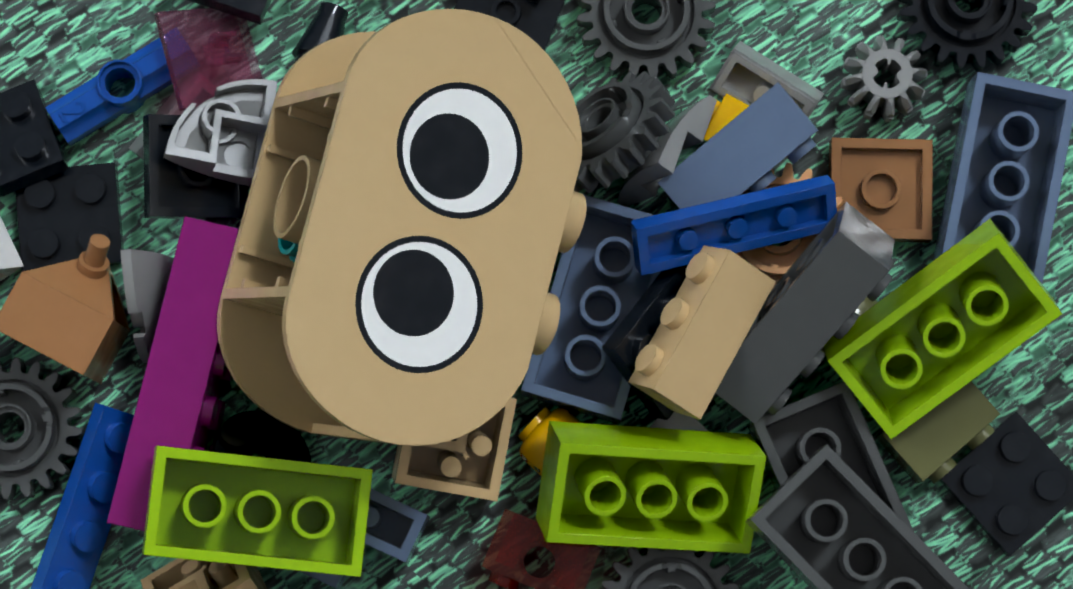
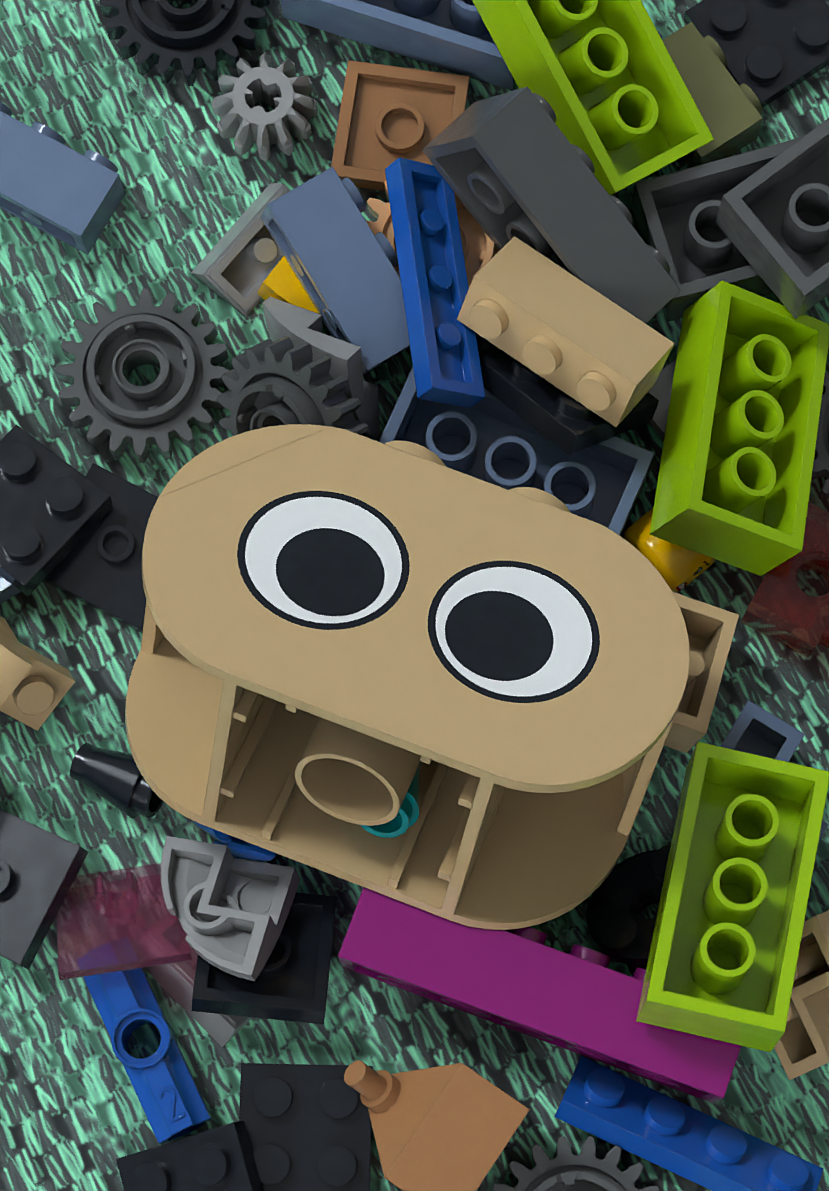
camera: 80 degrees left, 5 degrees down
(144, 286) = (425, 1028): light grey brick -> none

